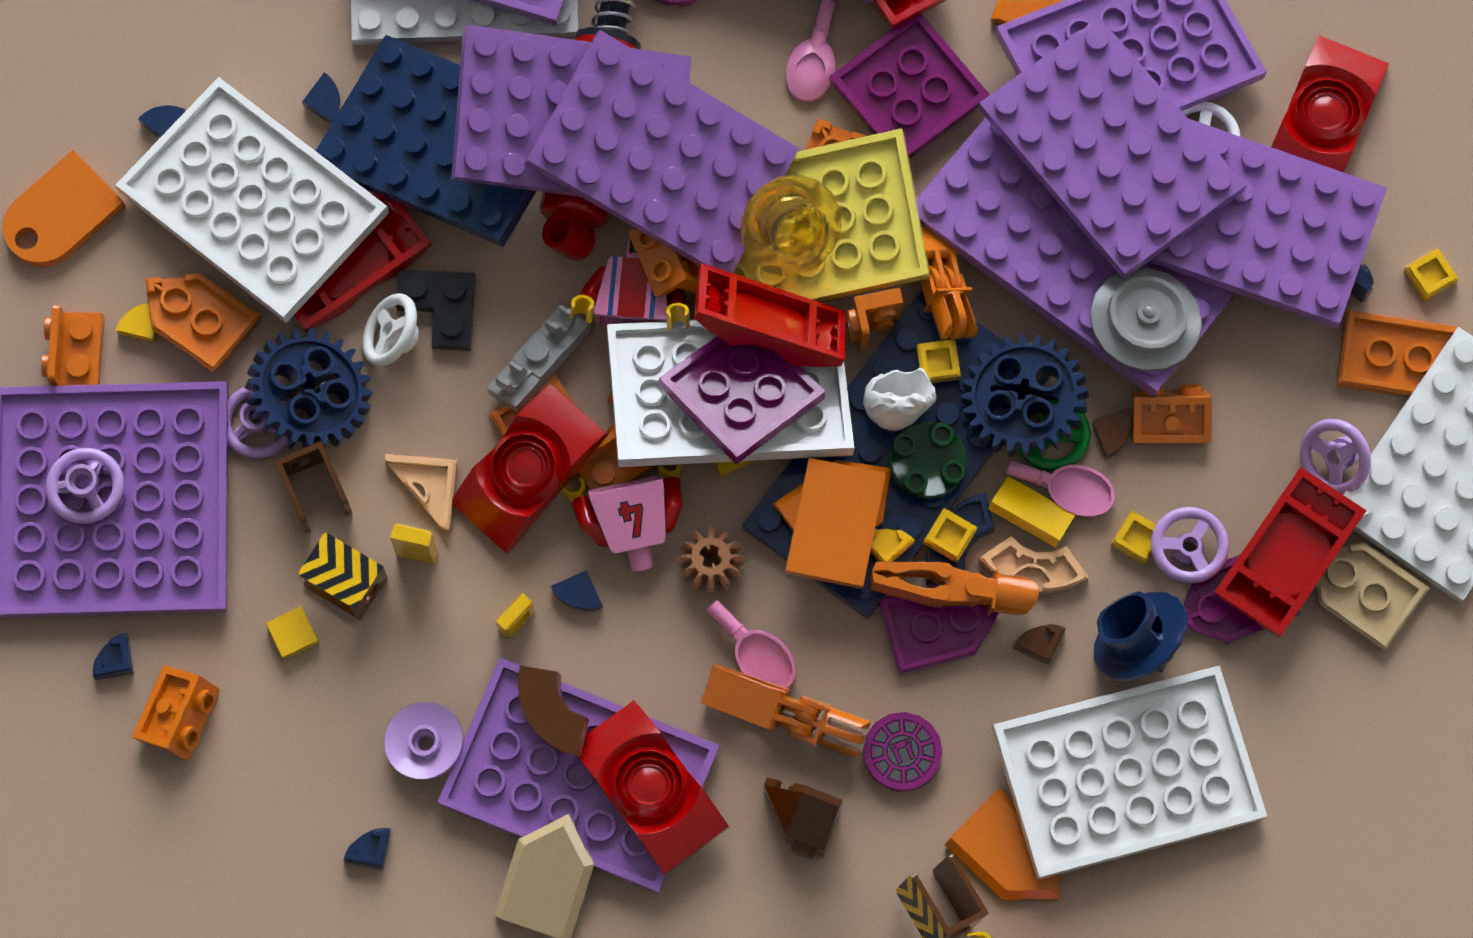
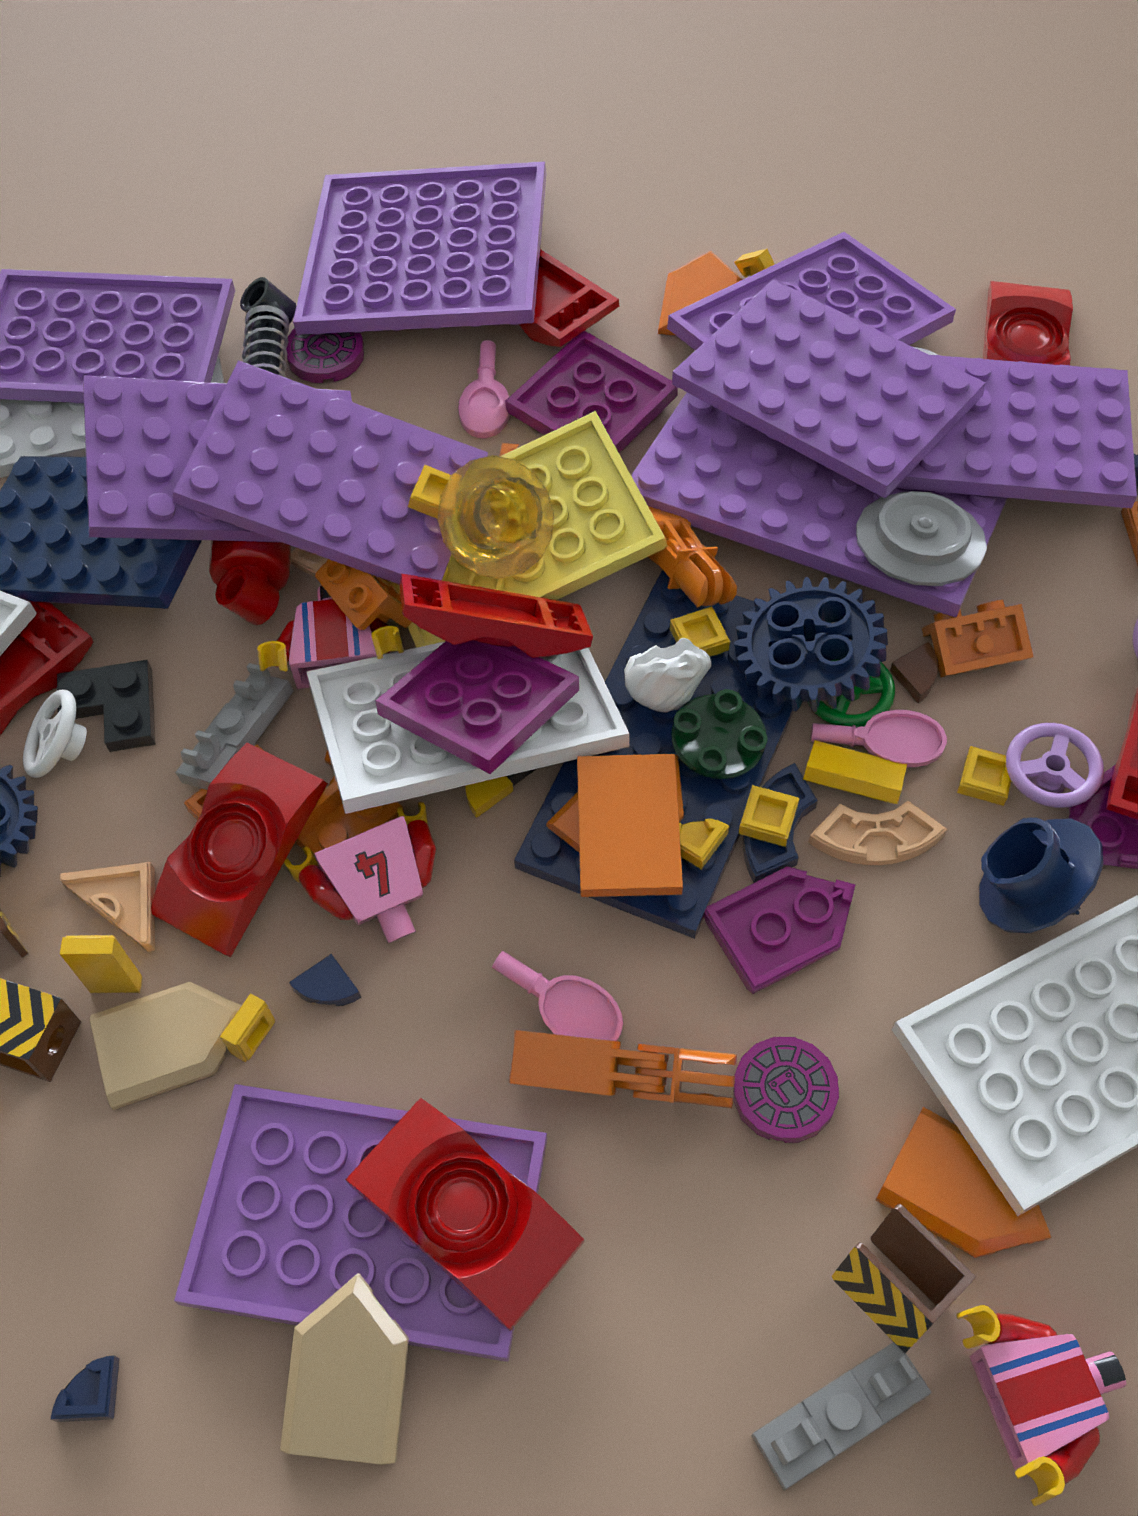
camera: 10 degrees left, 15 degrees down
(414, 725) = (127, 1208): lavender dish -> none
(449, 608) = (160, 1042): none -> tan tile
(548, 712) = (308, 1138): reddish brown tile -> none
(705, 546) = (488, 924): nougat gear -> none
(741, 189) = (427, 491): none -> yellow tile
(803, 816) = (681, 1200): reddish brown slope -> none
(873, 311) = (614, 597): orange bracket -> none
(957, 587) = (774, 868): orange arm -> none
(1040, 642) = (914, 917): reddish brown tile -> none

